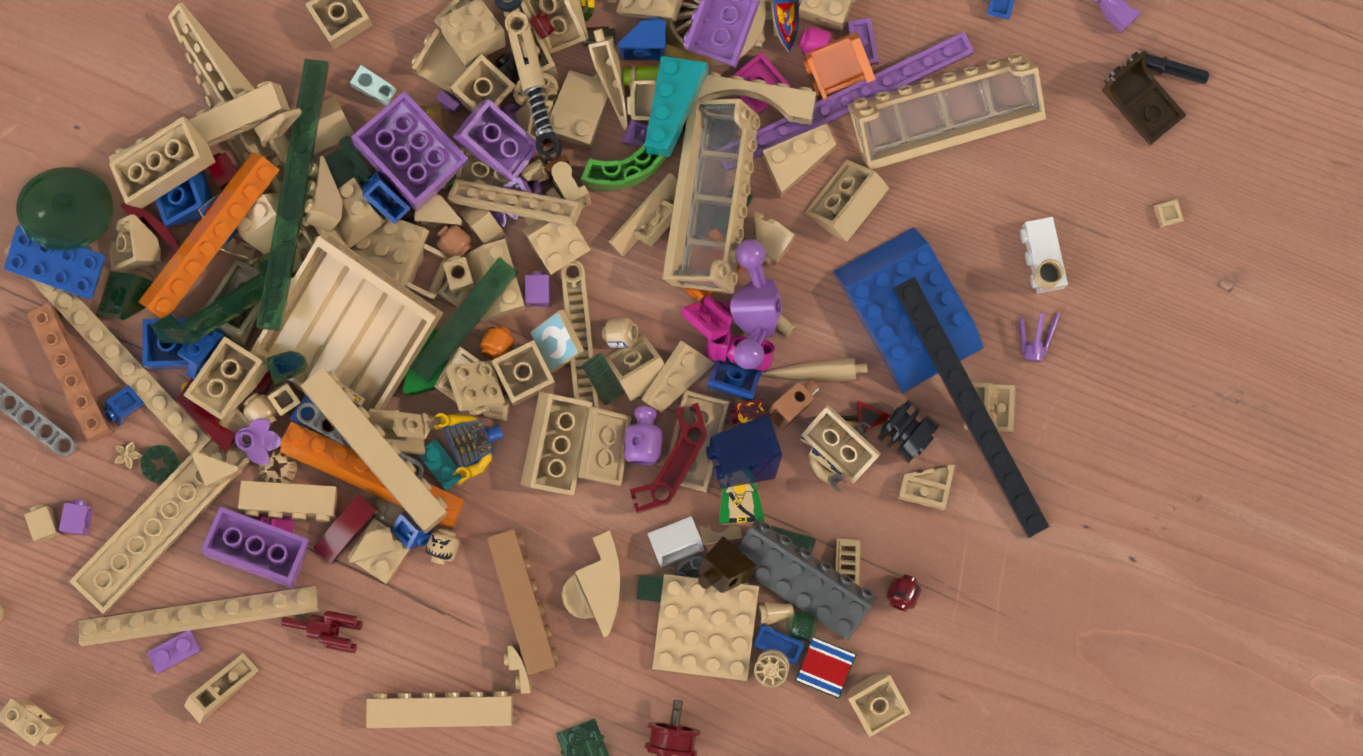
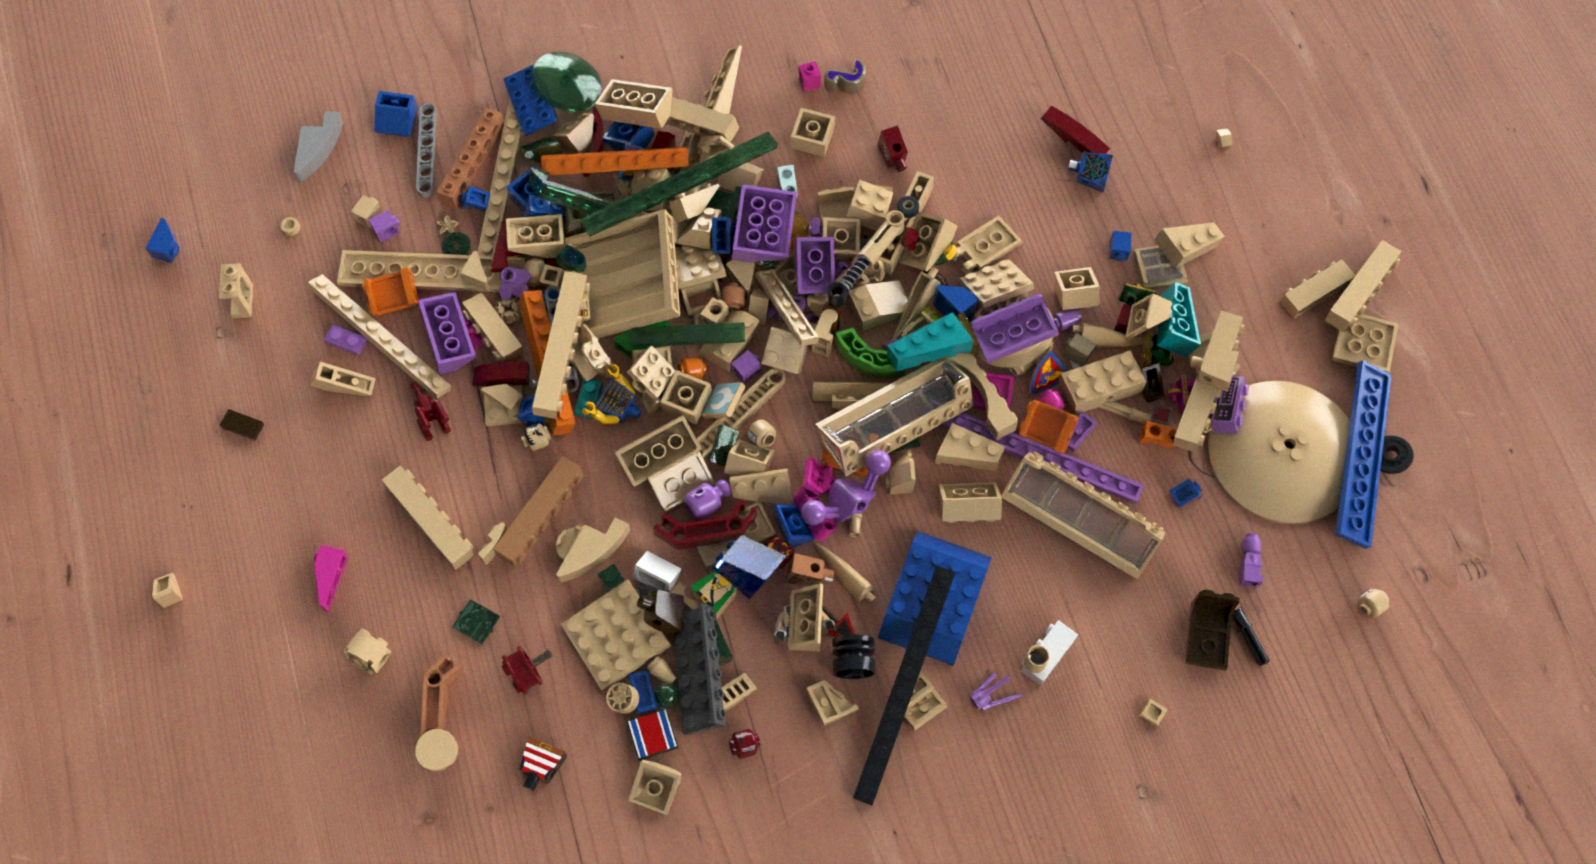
camera: 50 degrees right, 15 degrees down
(162, 568) = (391, 292): none -> orange panel

